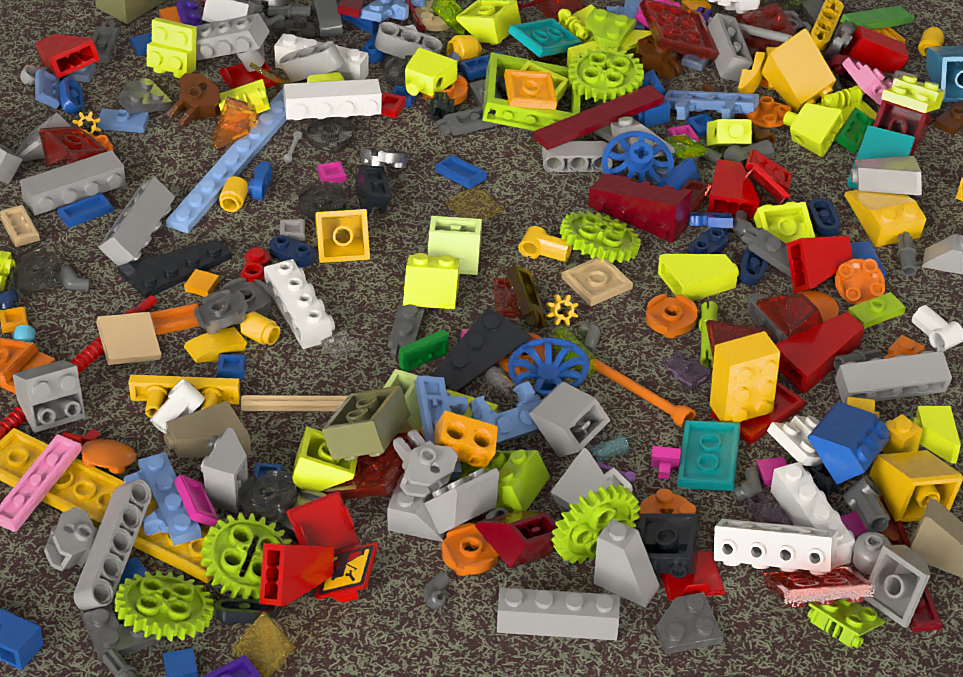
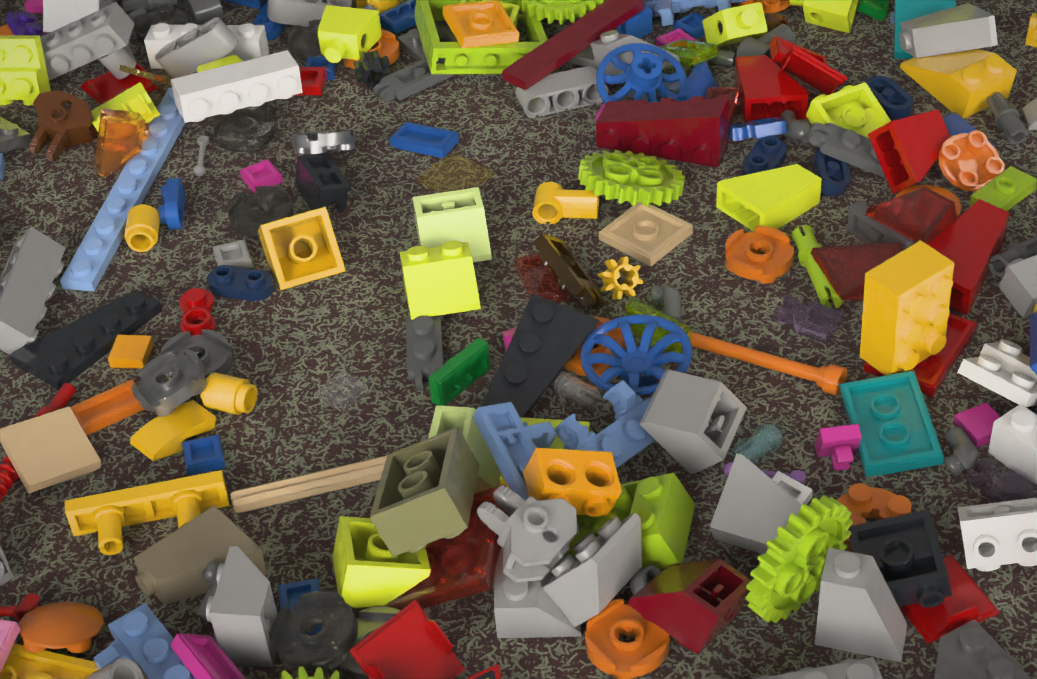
camera: 10 degrees left, 0 degrees up
(182, 401) = (149, 521): white piece -> none
(298, 303) = (271, 348): white brick -> none

